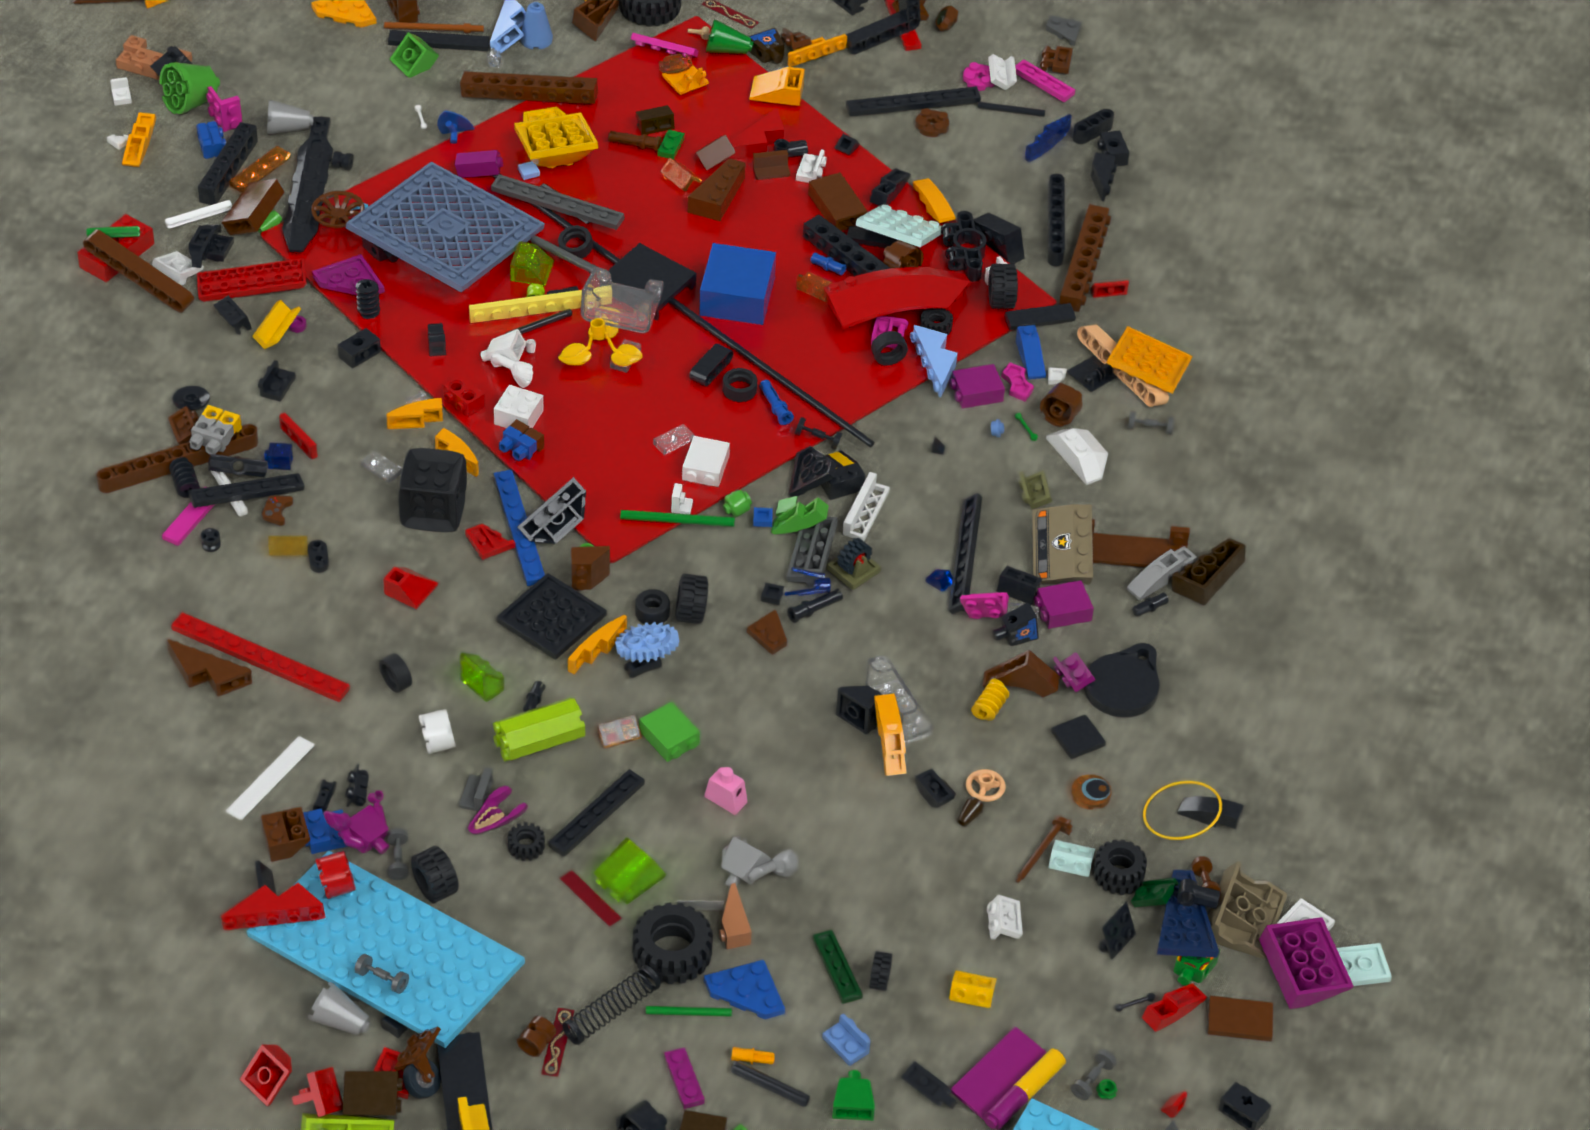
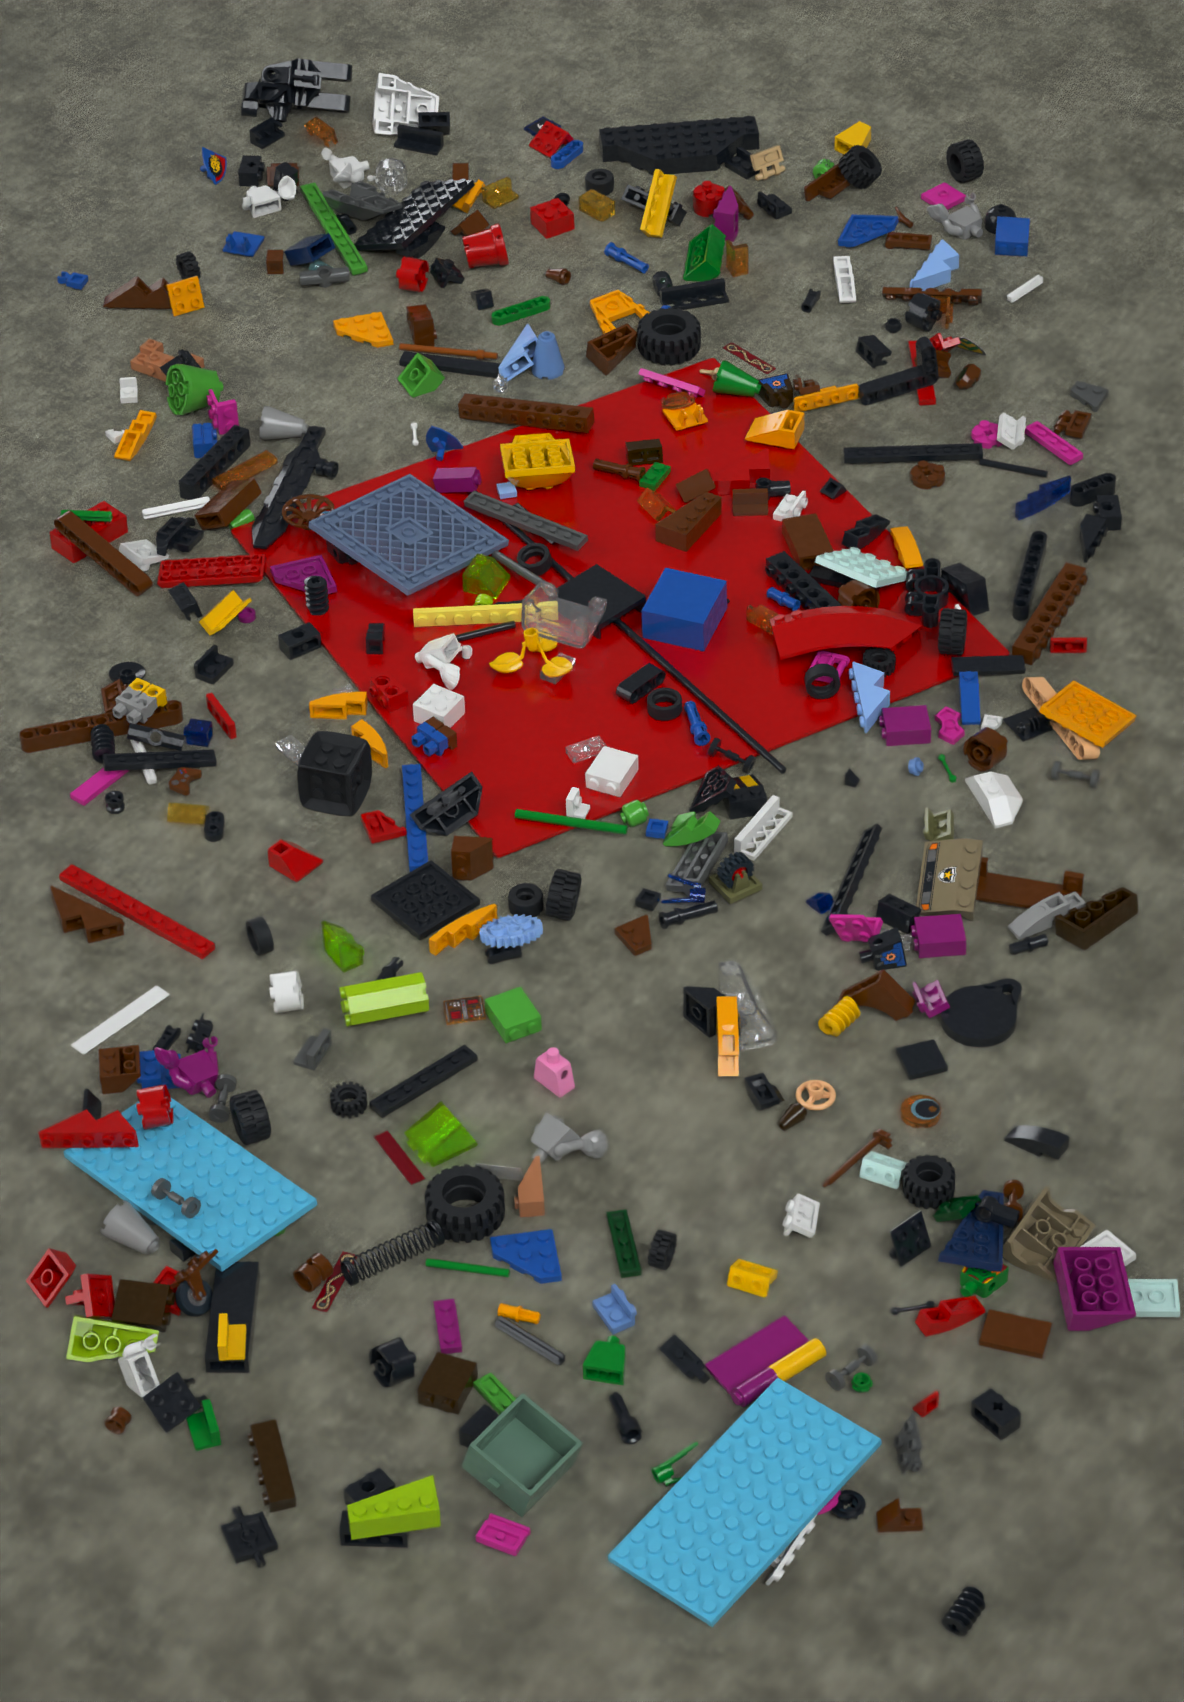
camera: 15 degrees right, 5 degrees down
(491, 816) = (321, 1073): magenta animal -> none
(1185, 837) = (1002, 1113): yellow piece -> none

